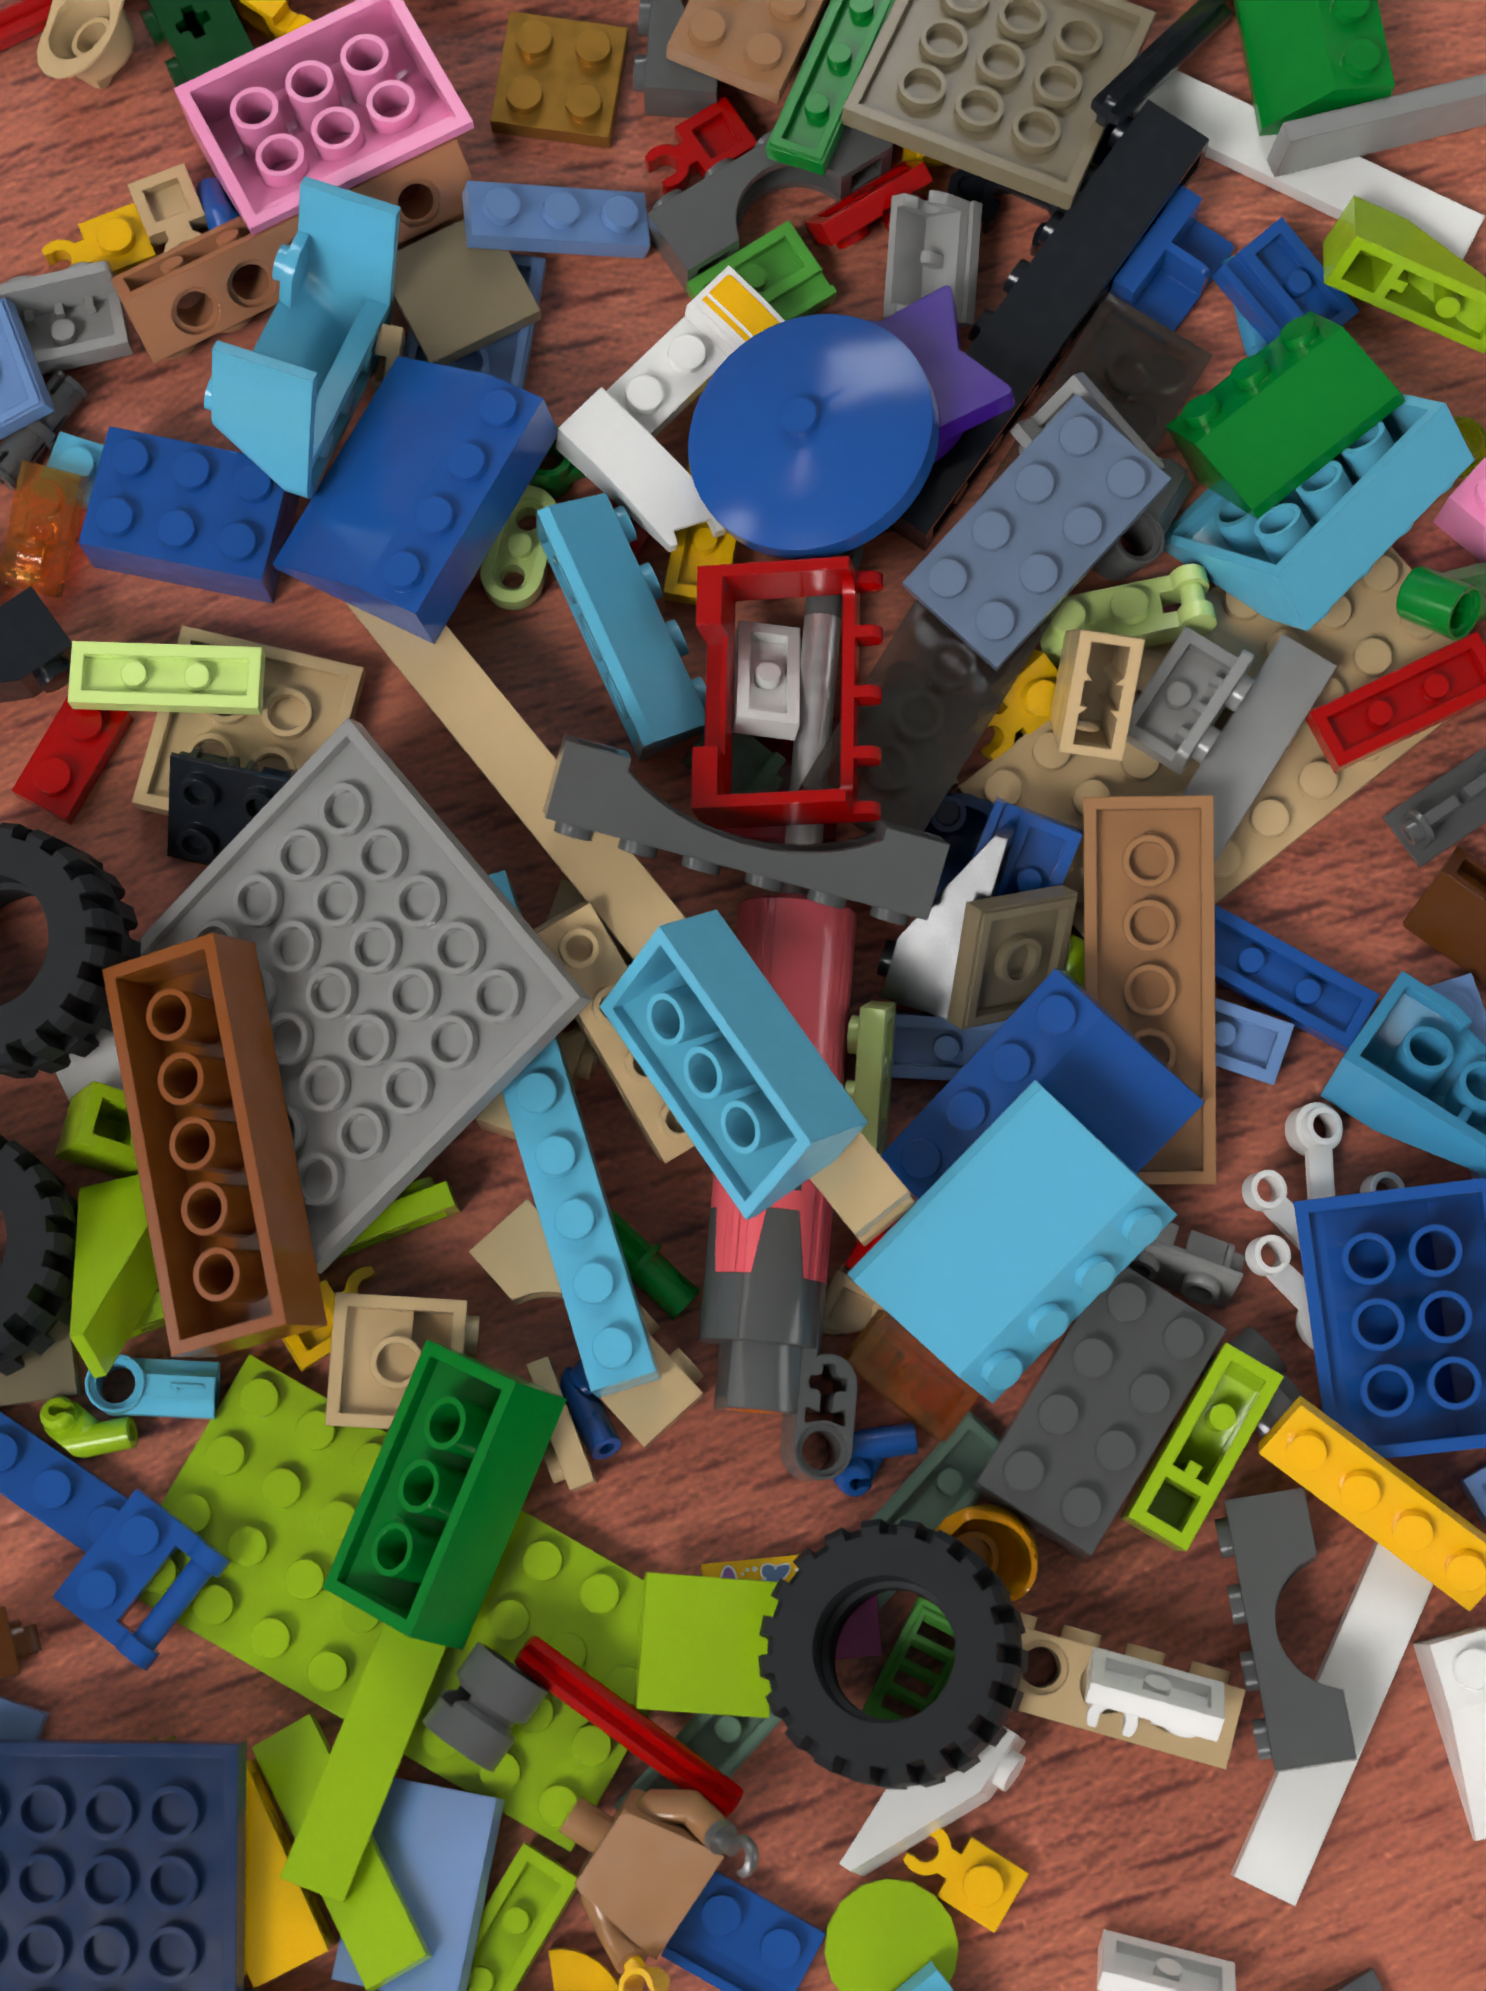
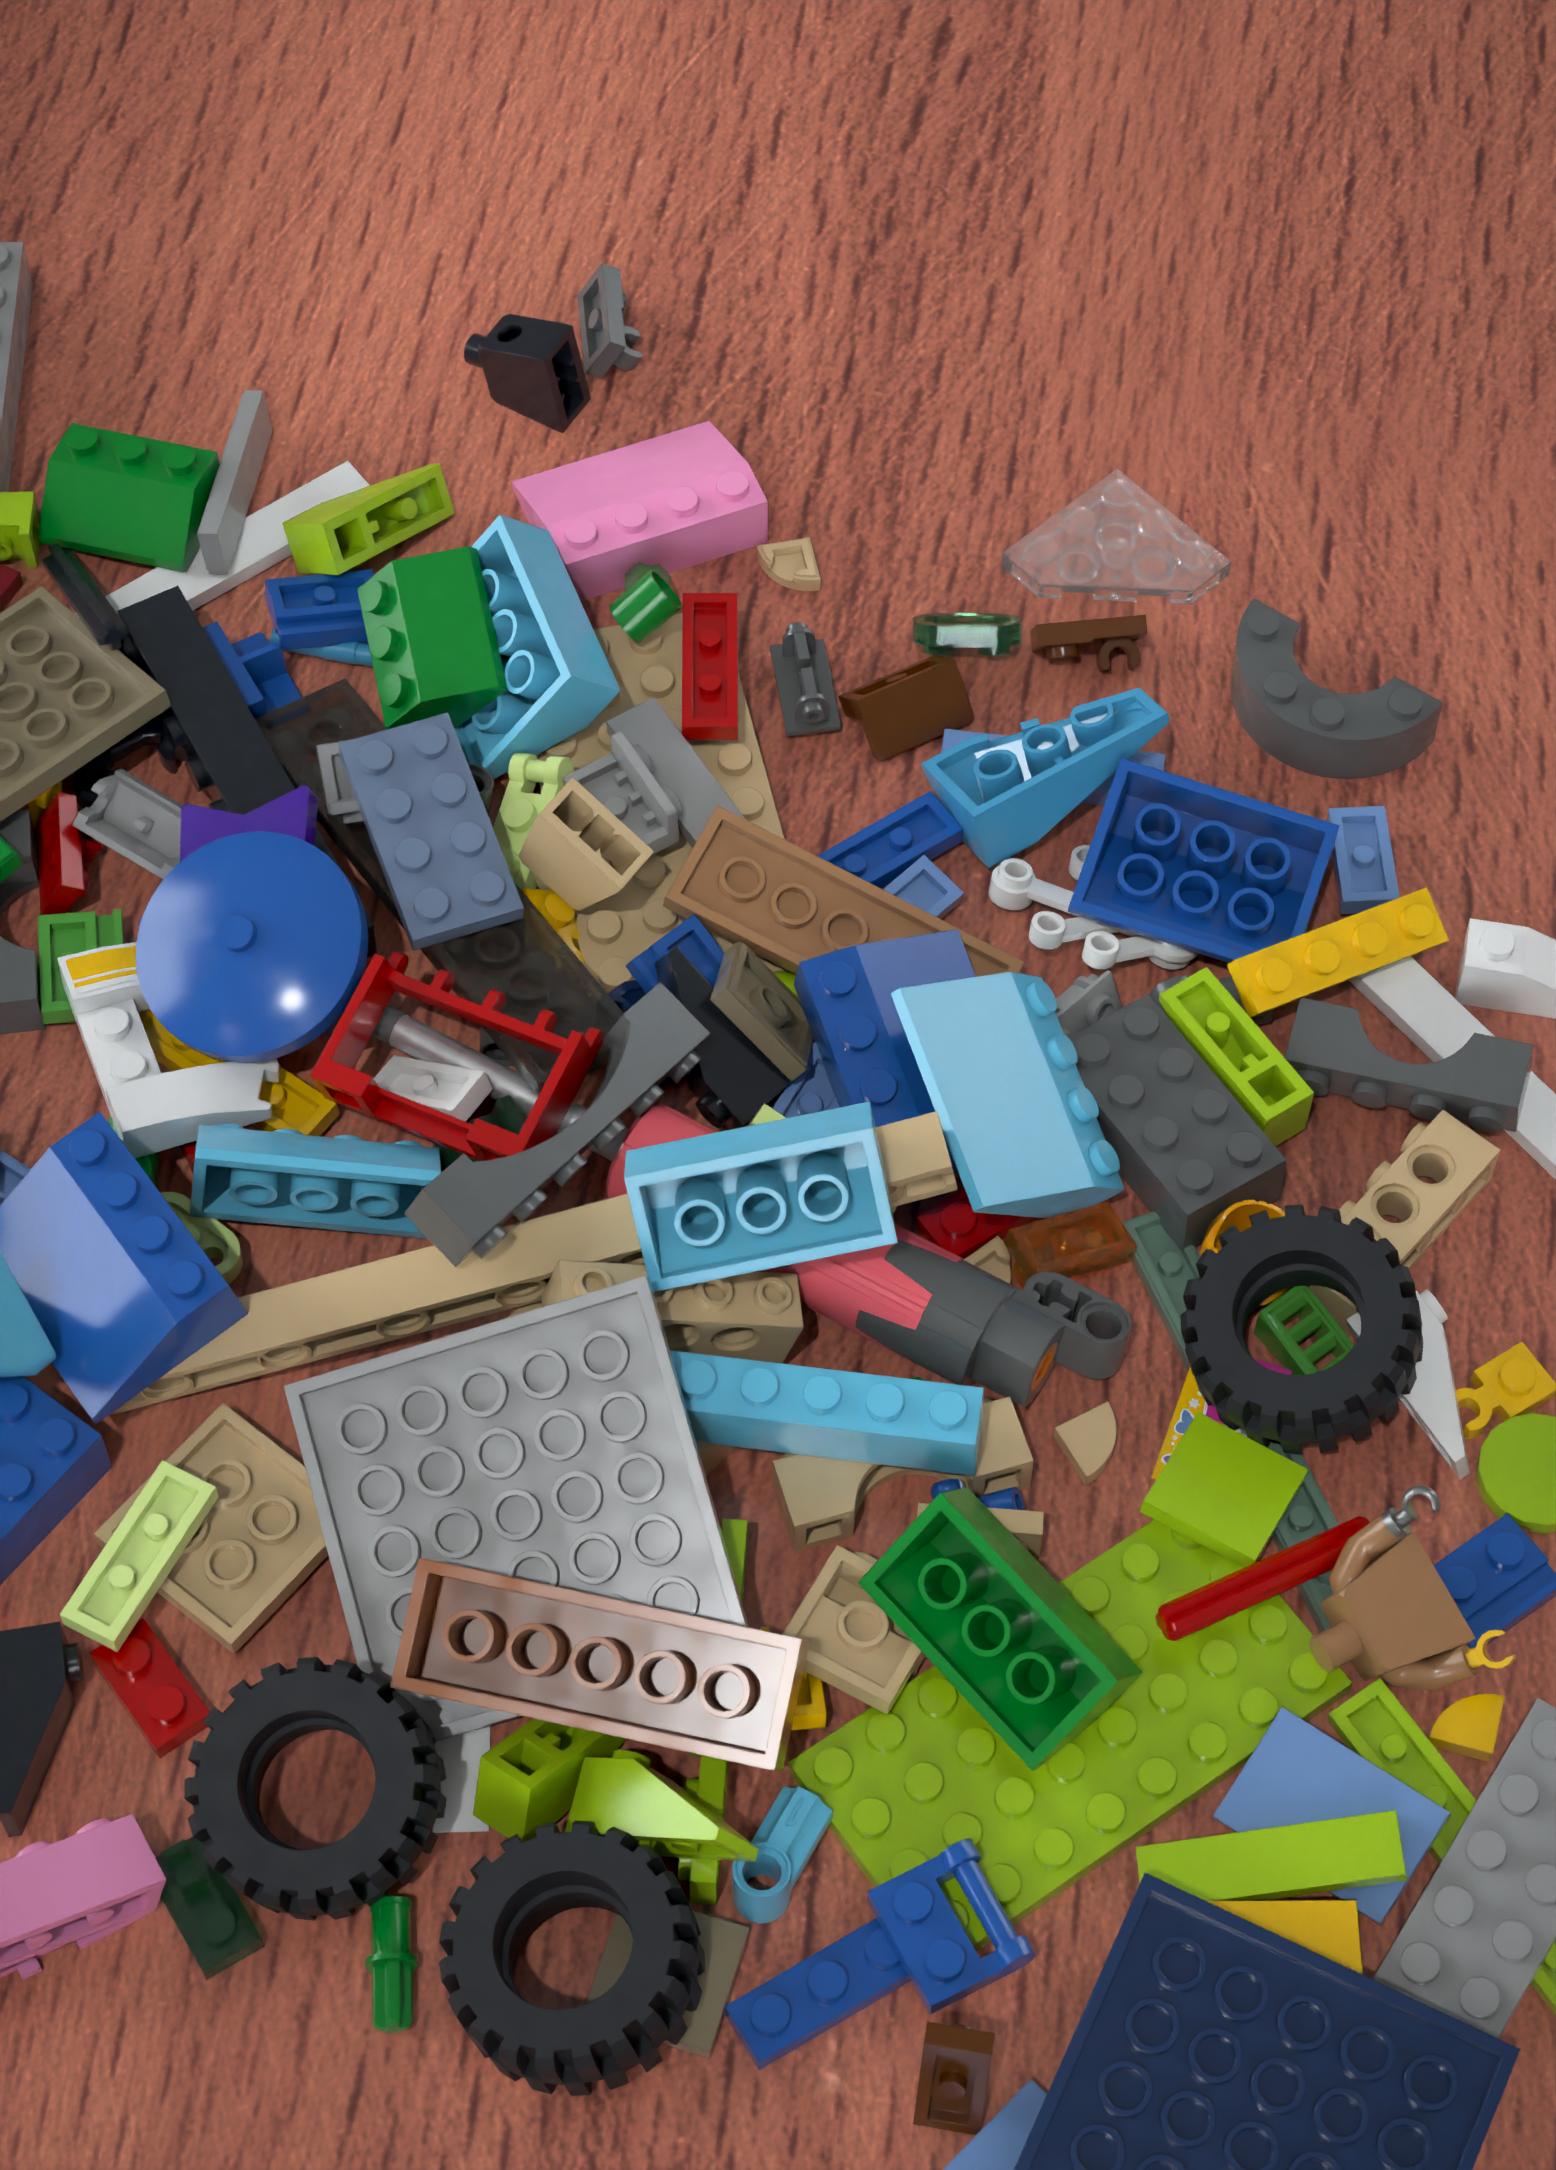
camera: 65 degrees left, 20 degrees down
(84, 1434) = (788, 1941): lime arm -> none
(214, 801) = (284, 1566): black hinge -> none
(363, 1764) = (1202, 1798): lime tile -> none
(485, 1707) = (1205, 1680): dark grey wheel -> none
(715, 1487) = (1088, 1441): none -> tan tile
(870, 1450) = (1118, 1287): blue arm -> none
(1166, 1696) = (1434, 1146): white plate -> none

